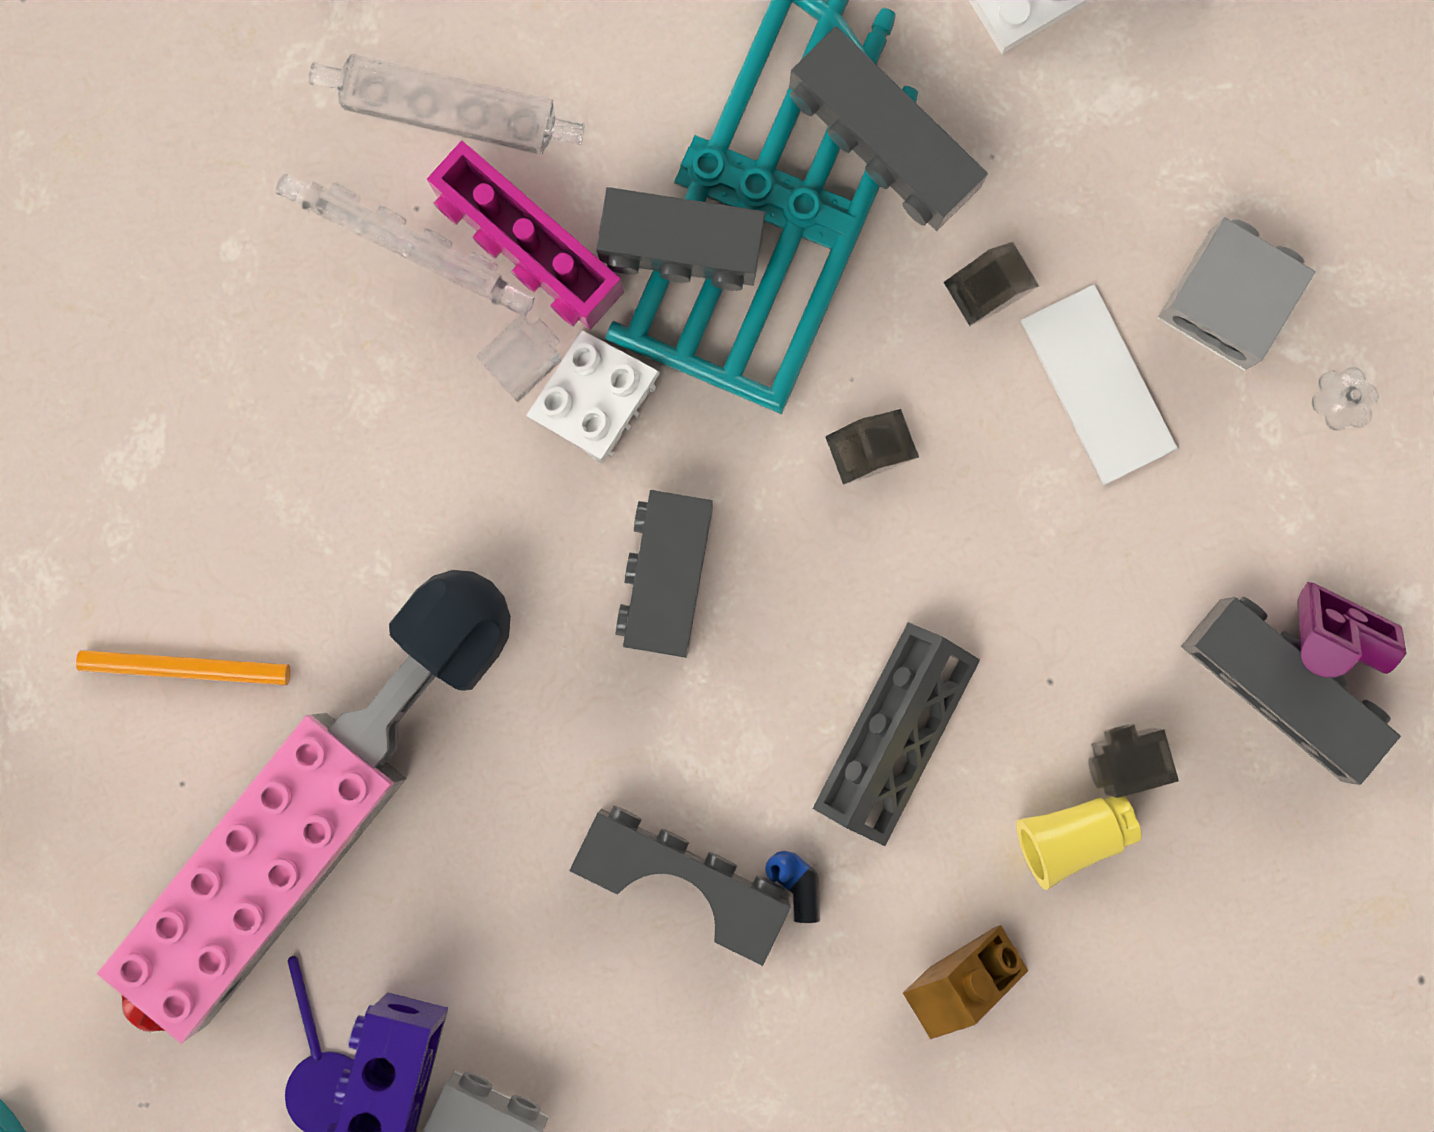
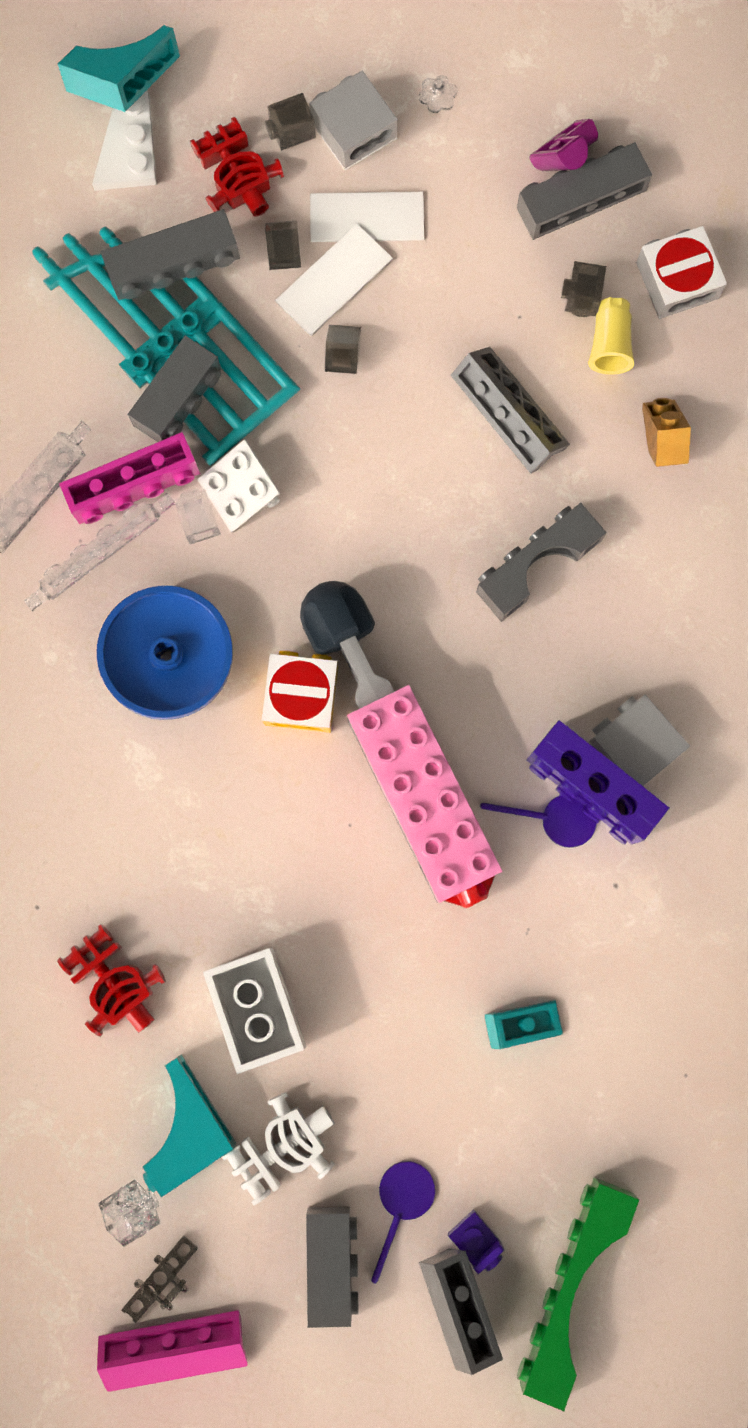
camera: 65 degrees left, 5 degrees down
(183, 667) = (282, 791): light orange bar -> none
(247, 399) = (156, 623): none -> blue dish
(328, 627) = (300, 691): none -> piece
(665, 573) = (360, 491): dark grey brick -> none
(800, 880) = (568, 497): arm -> none
(977, 382) = (334, 279): none -> white piece
(1055, 188) = (240, 175): none -> red piece
(1185, 202) = (290, 122): none -> clear smoke brick
(1231, 894) = (681, 272): none -> piece

